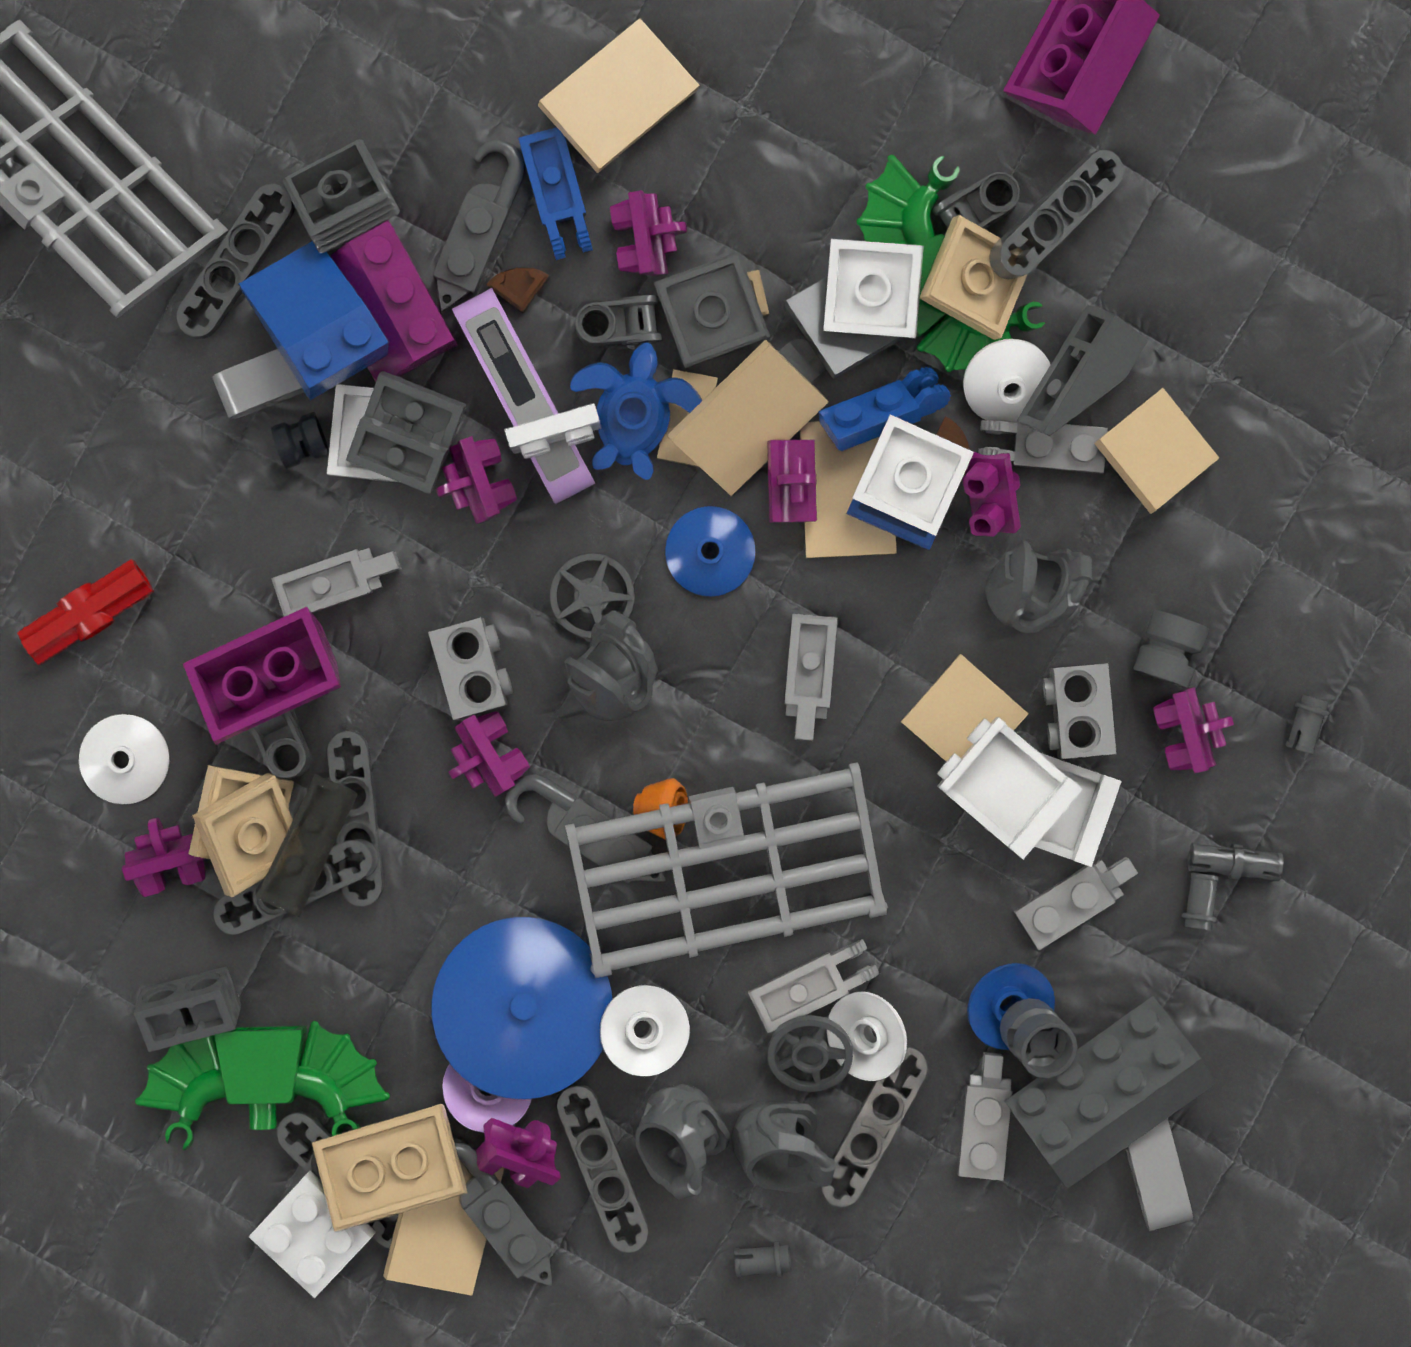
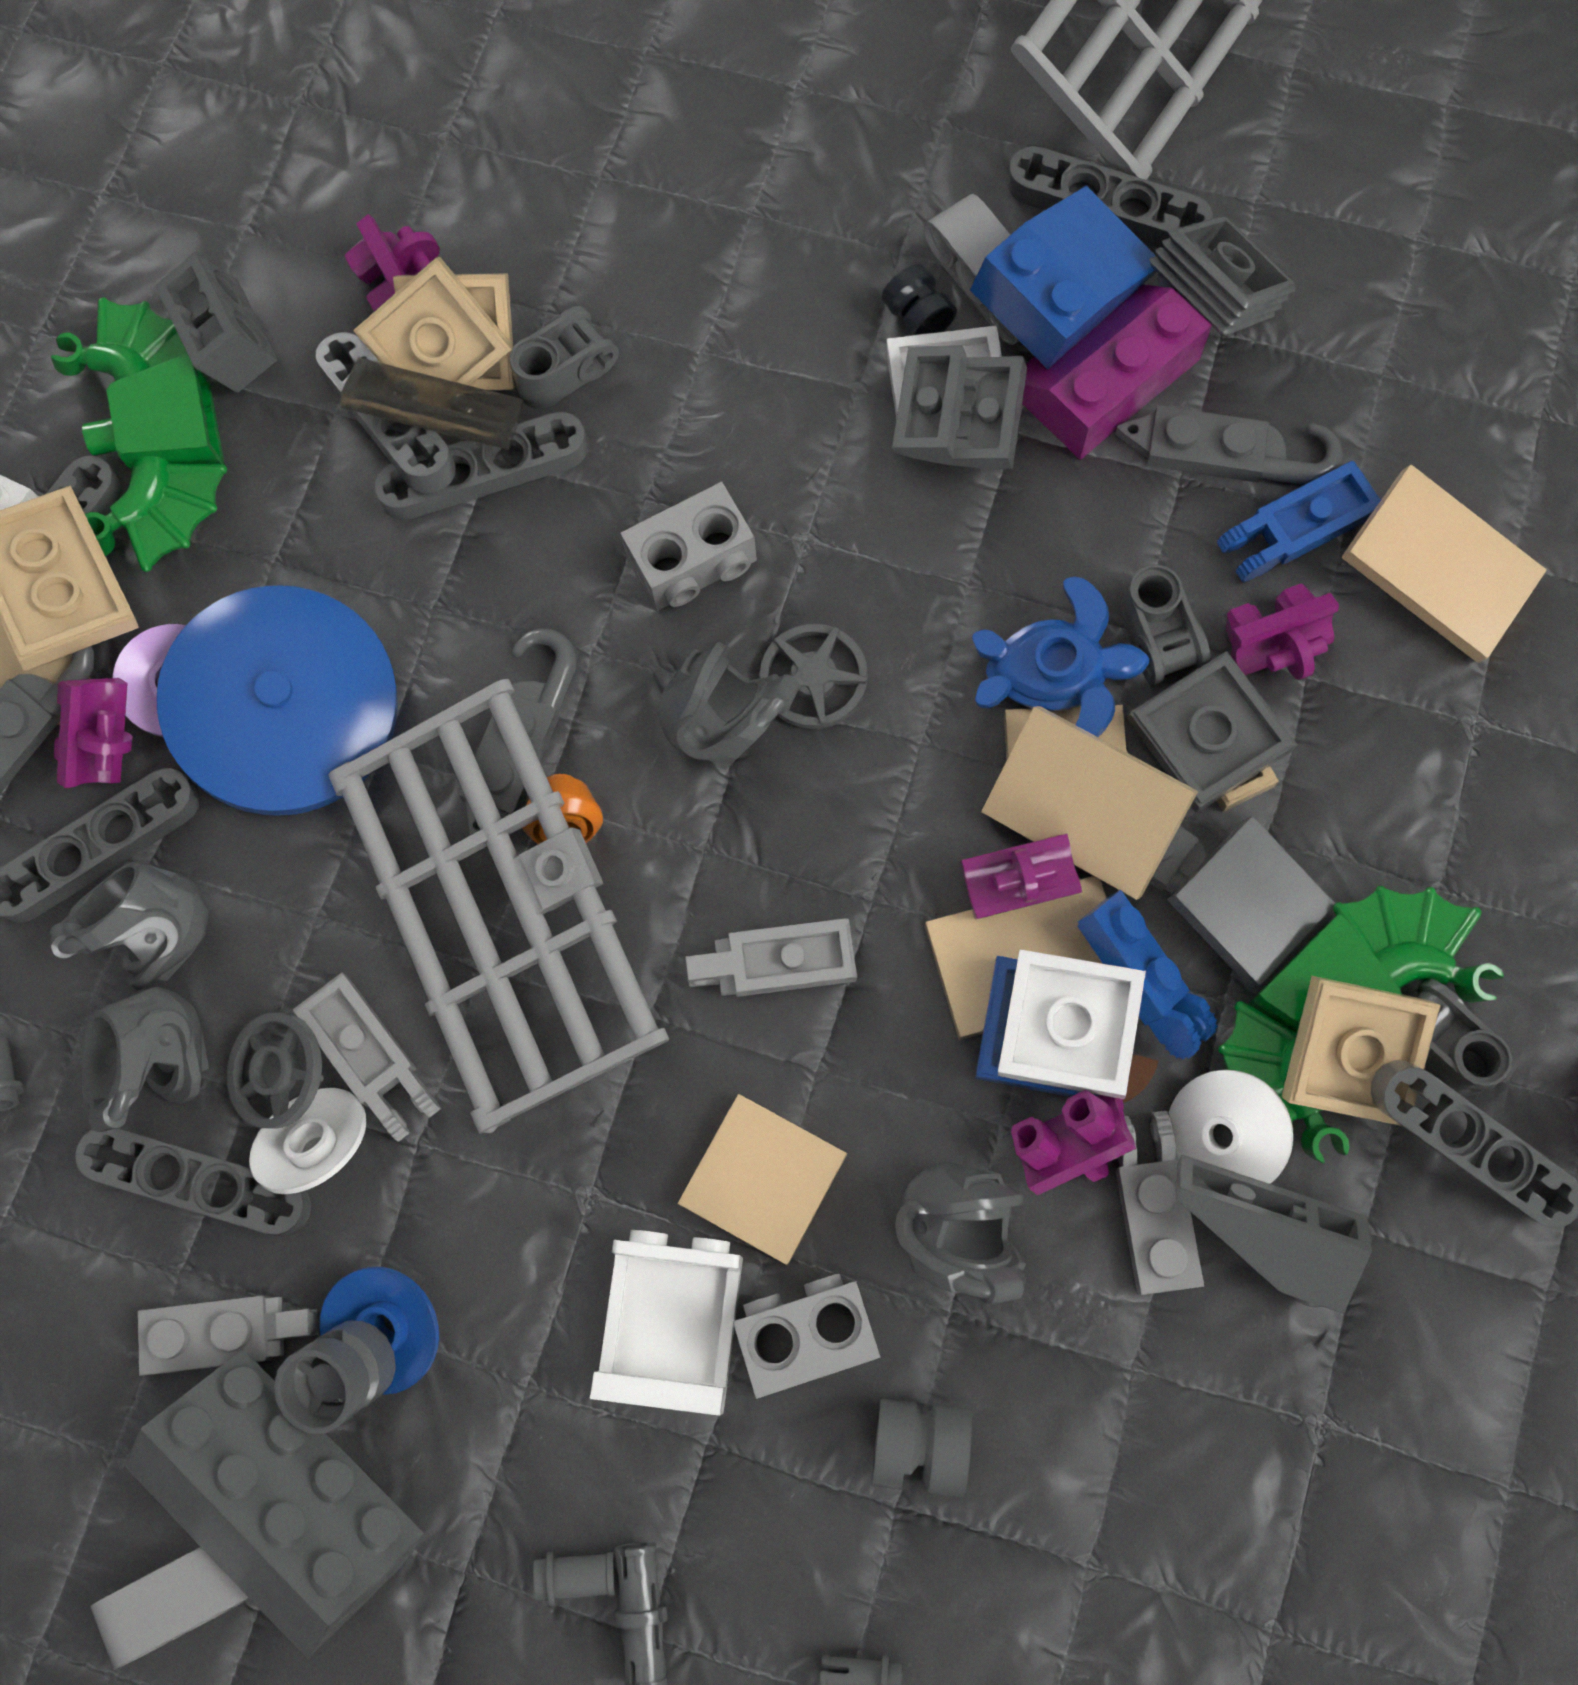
camera: 85 degrees right, 15 degrees down
(85, 612) = (663, 130): red piece -> none
(147, 759) = (506, 230): white dish -> none
(263, 674) = (632, 309): magenta slope -> none
(333, 580) = (760, 378): light grey hinge -> none
(469, 482) = (948, 497): magenta hips -> none
(477, 738) = (570, 609): magenta hips -> none
(518, 286) = (1171, 509): reddish brown tile -> none
(520, 389) = (1038, 537): beam -> none
(534, 437) = (1011, 549): white plate -> none
(666, 1034) = (243, 849): white dish -> none
(715, 575) = (899, 832): blue dish -> none
(873, 288) = (1306, 915): white plate -> none
(1007, 786) = (677, 1249): white panel -> none
(1073, 901) = (543, 1389): light grey hinge -> none
(1156, 450) = (1192, 1363): tan tile -> none
(1196, 749) = (791, 1518): magenta hips -> none

